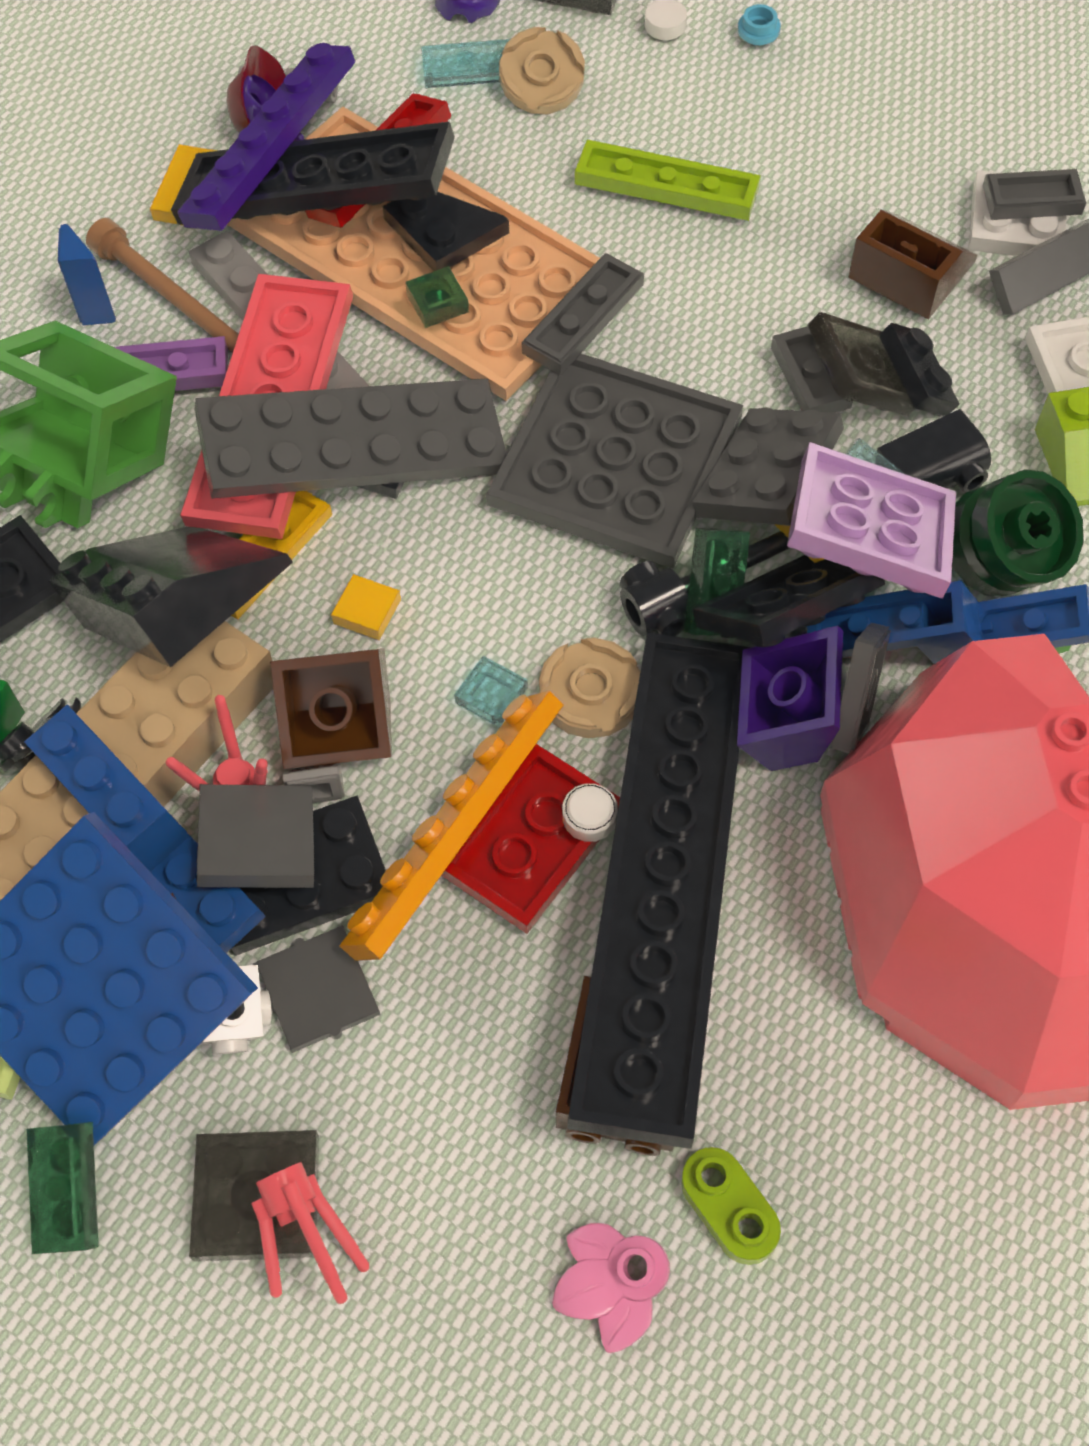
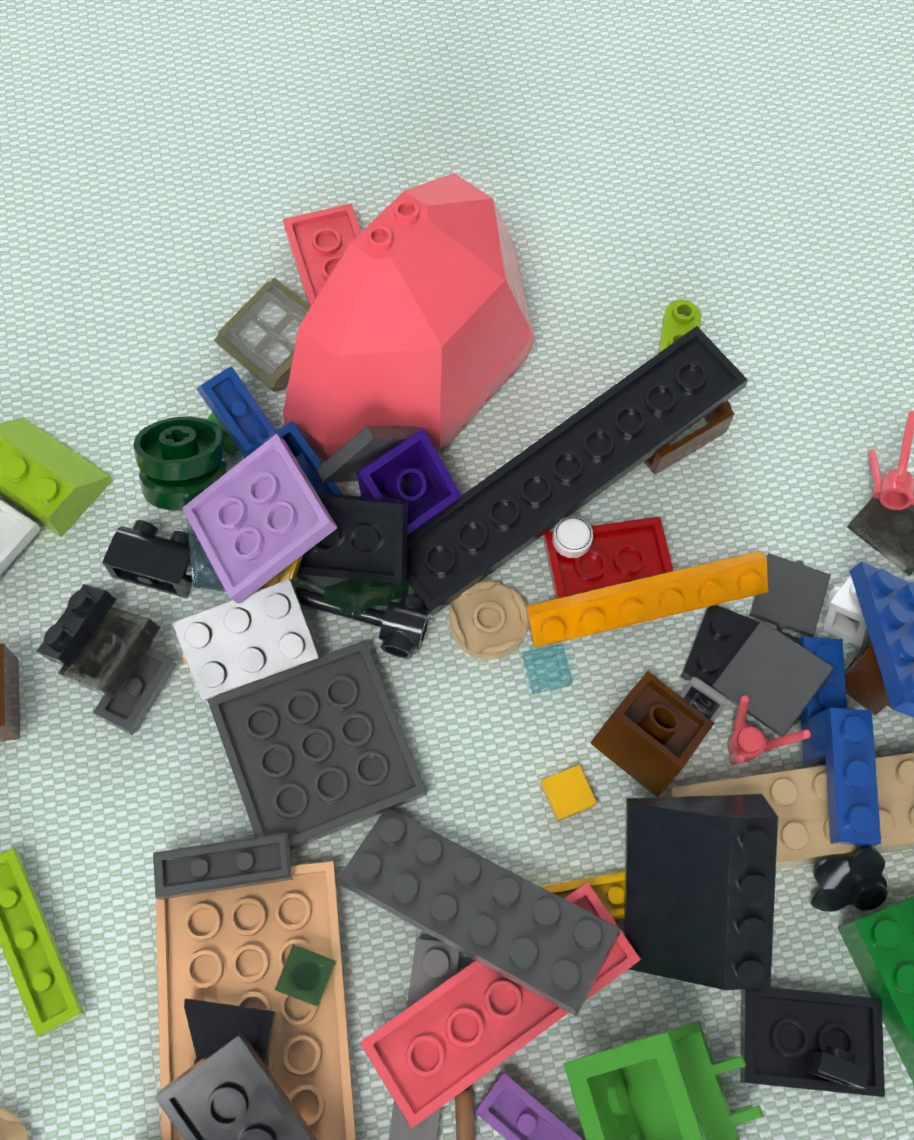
camera: 140 degrees left, 5 degrees up
(602, 1287) = (763, 349): bright pink plate -> none

